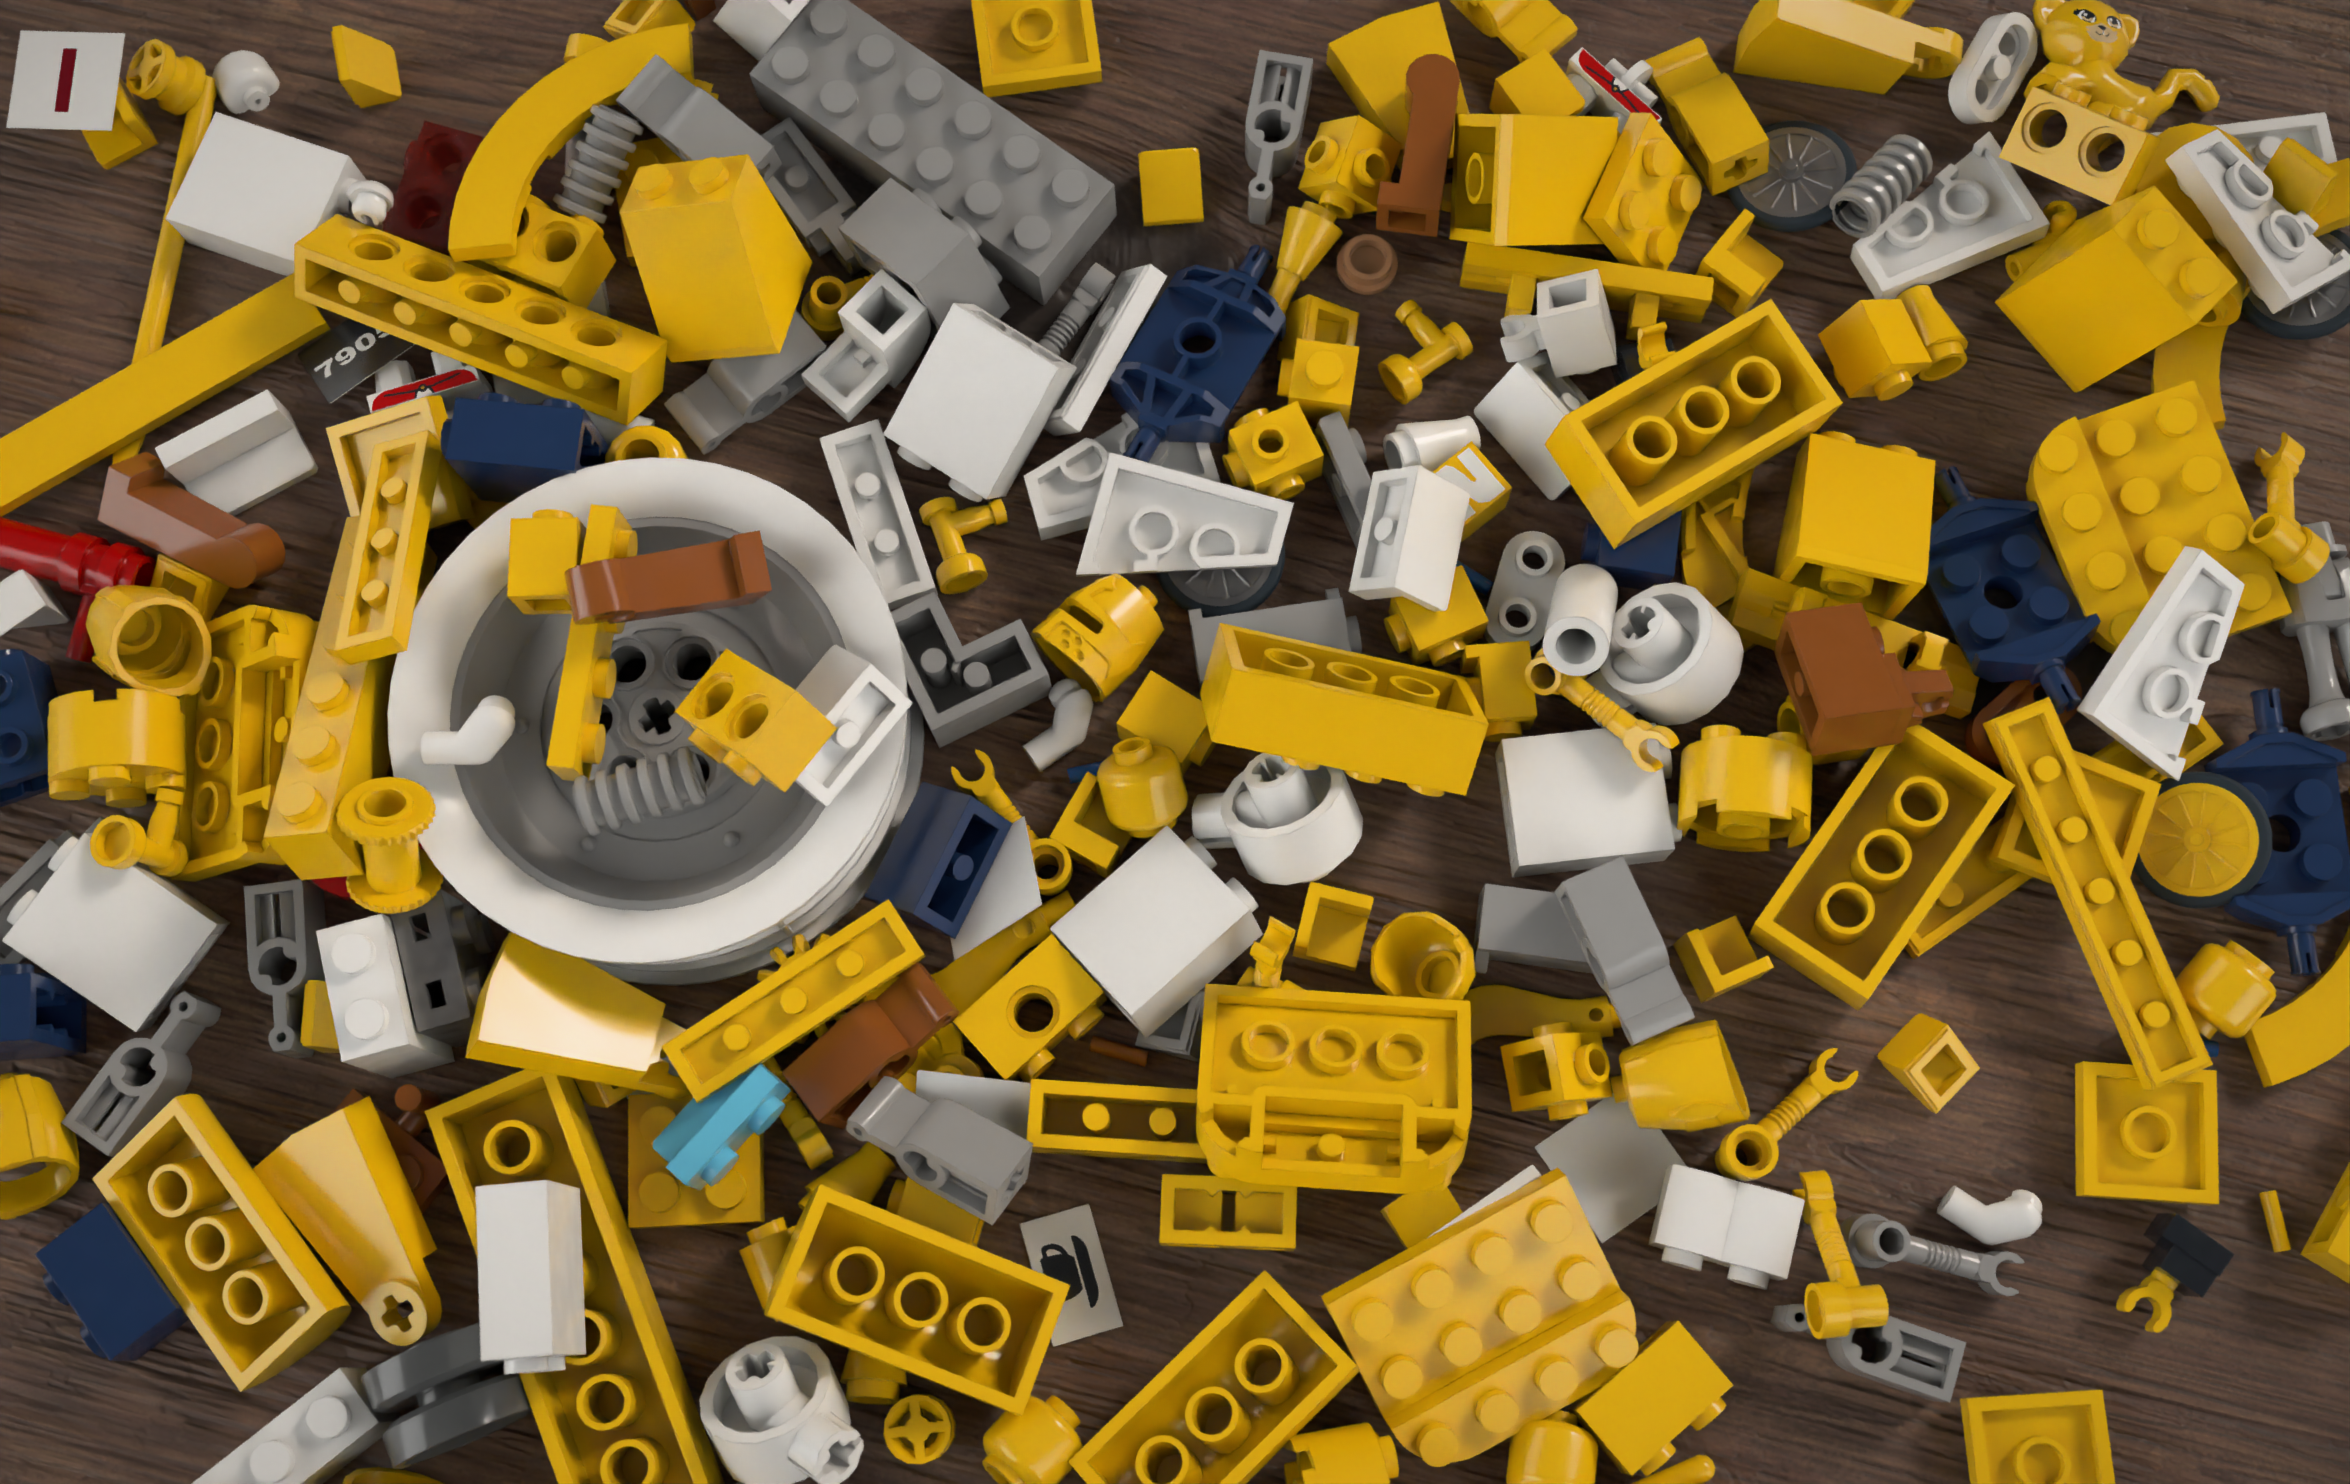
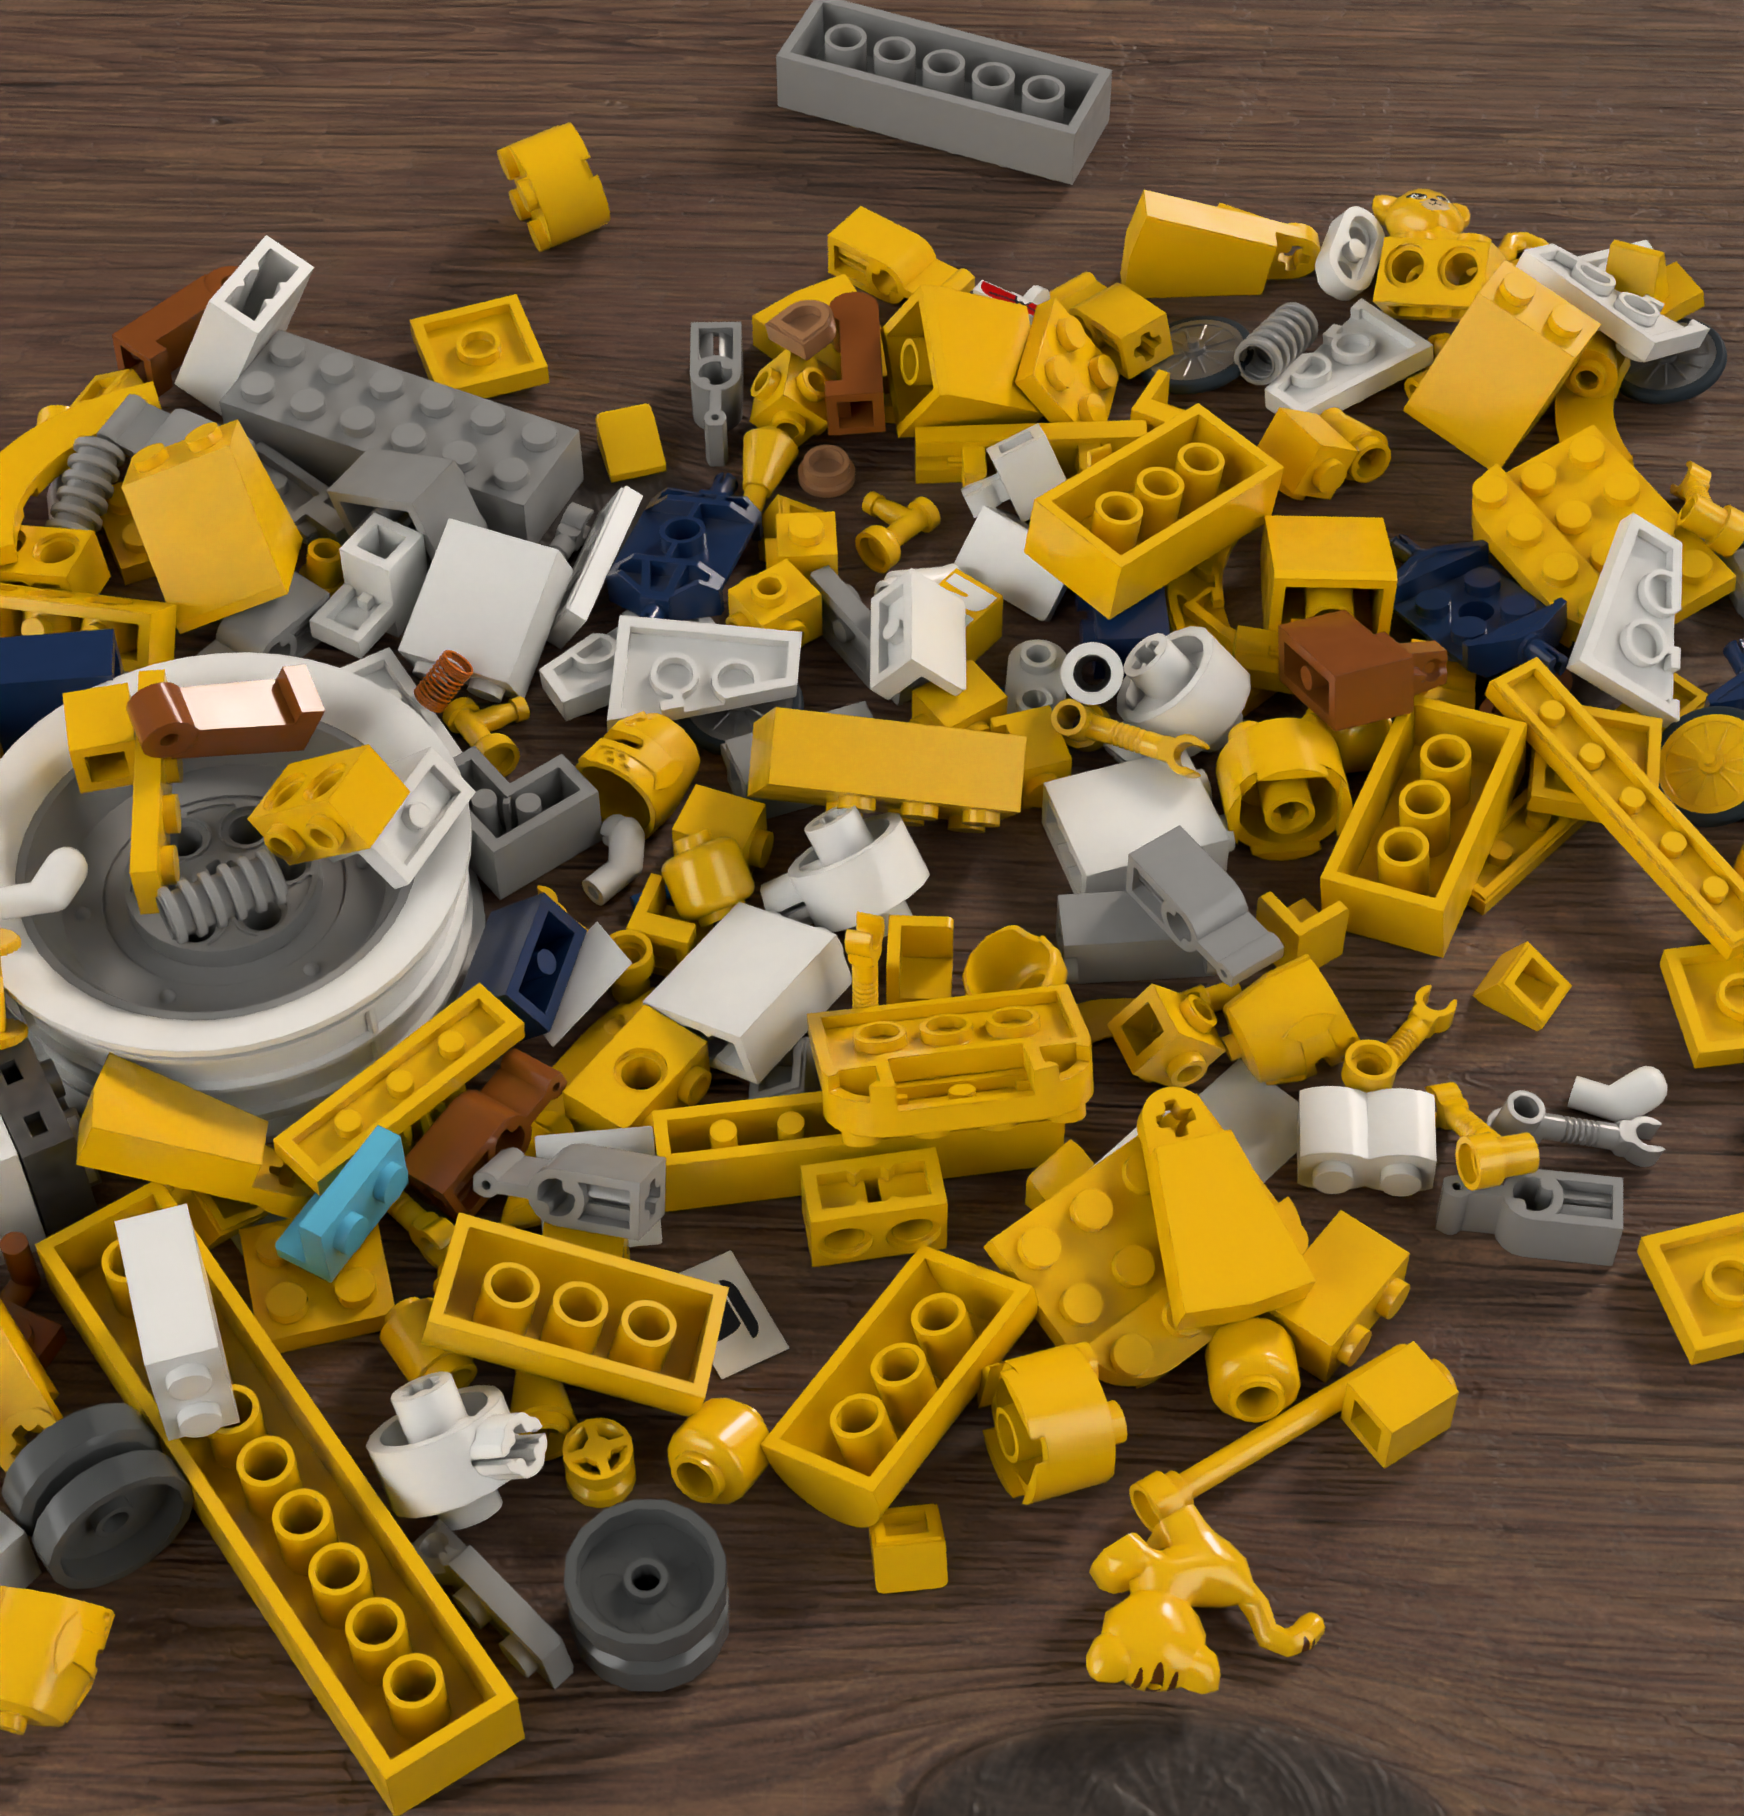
camera: 15 degrees left, 25 degrees down
(925, 481) = (451, 670): none -> orange piece
(1373, 101) = (803, 328): none -> medium nougat tile
(1547, 1338) = (1214, 1221): none -> yellow piece

